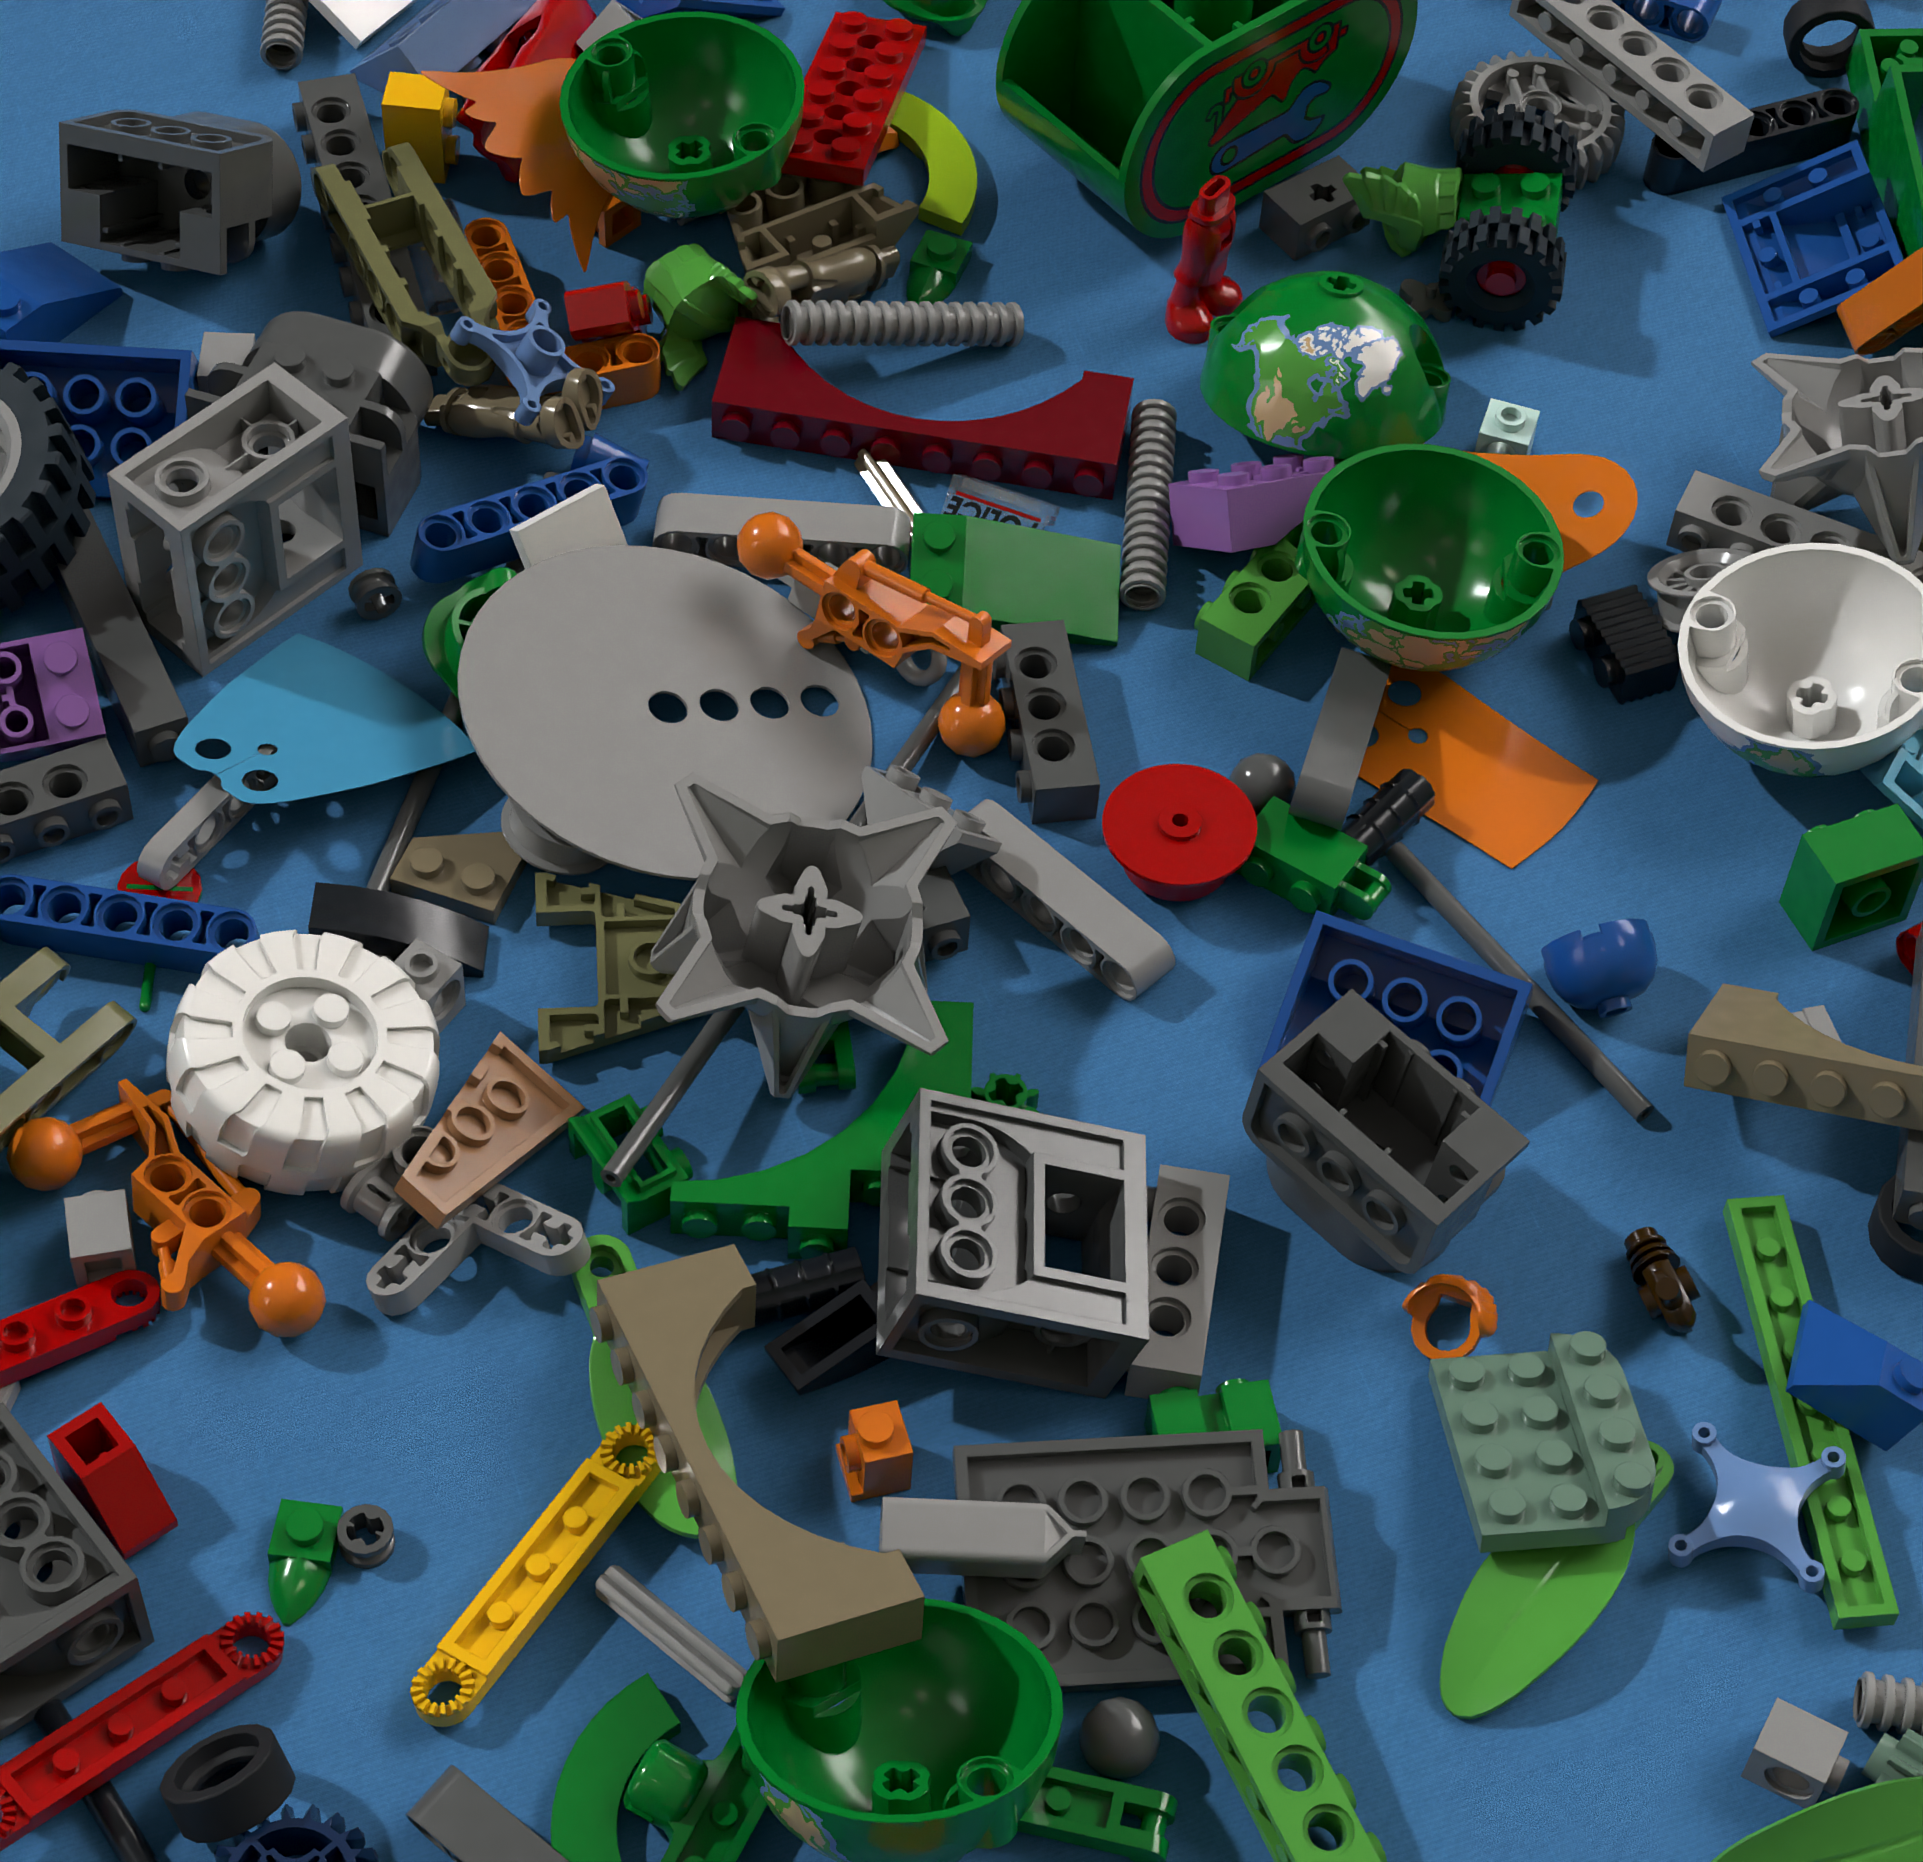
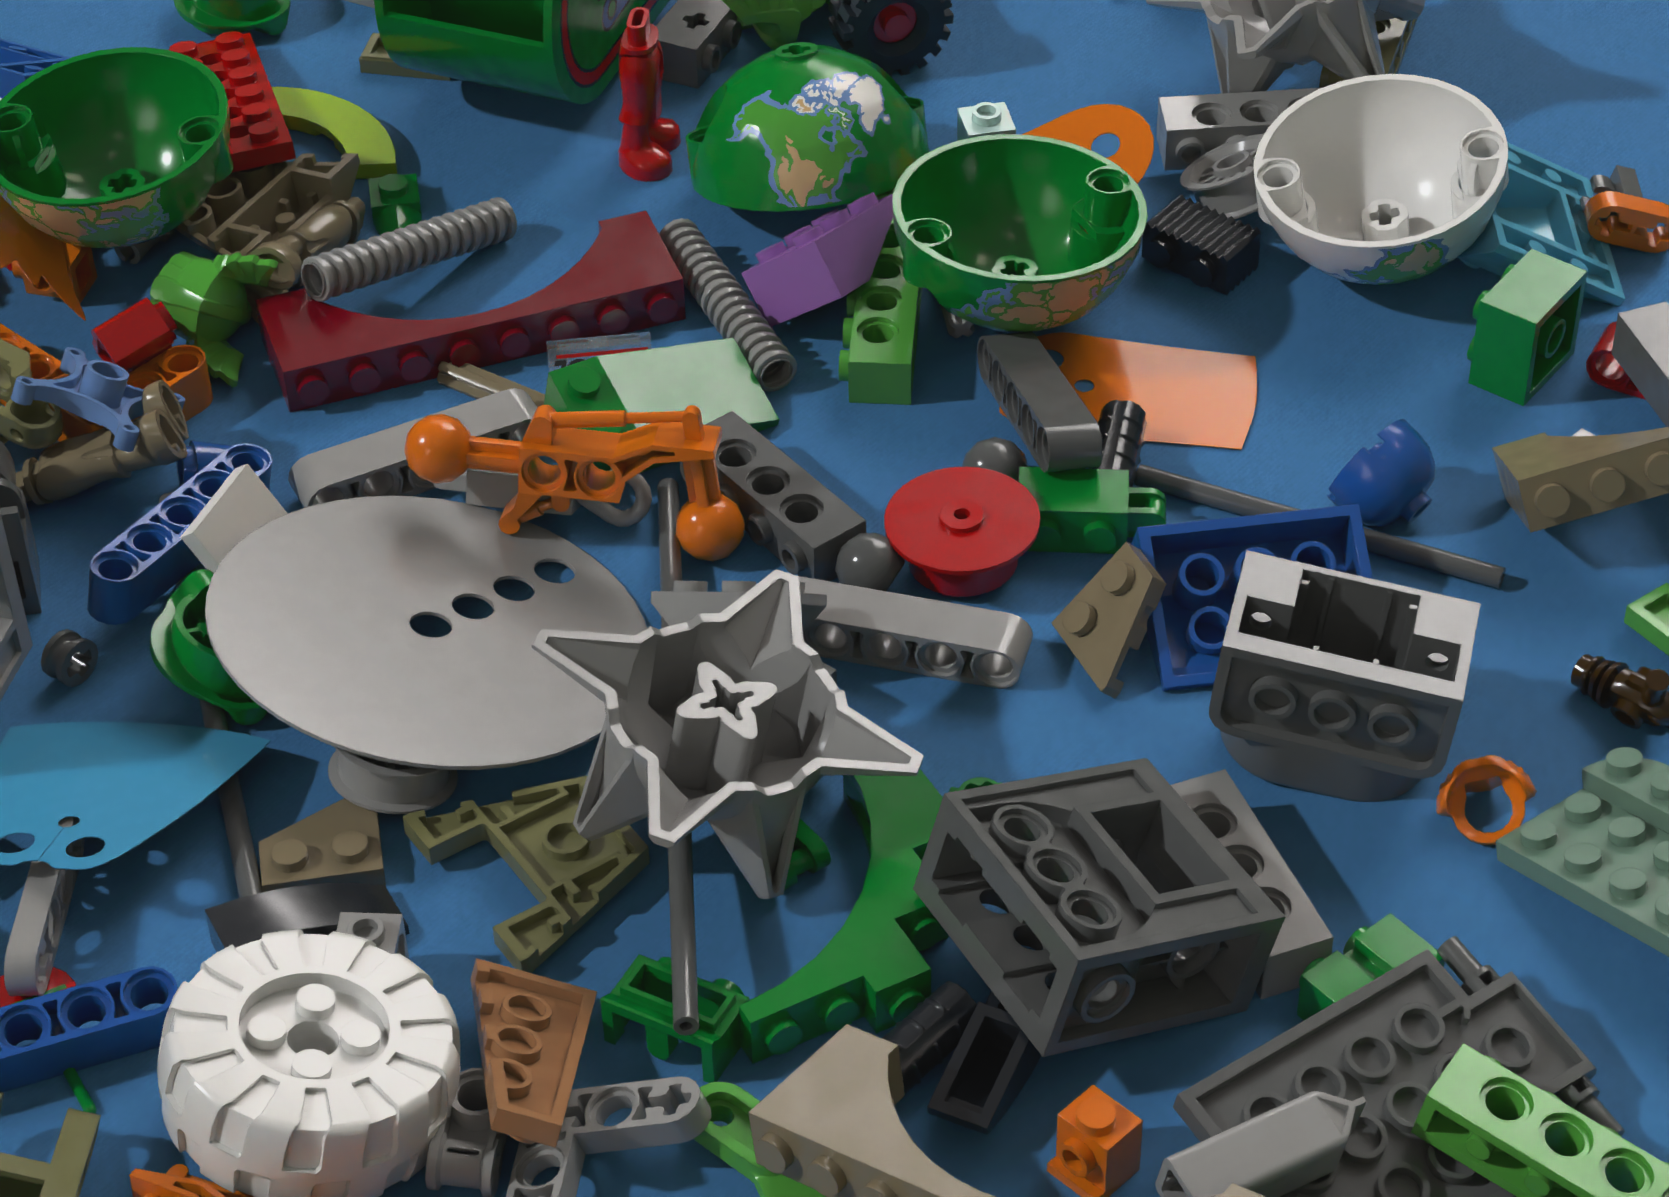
camera: 25 degrees left, 10 degrees down
(1077, 827) = (868, 562): none -> dark grey piece
(1248, 979) = (1111, 616): none -> dark tan wing

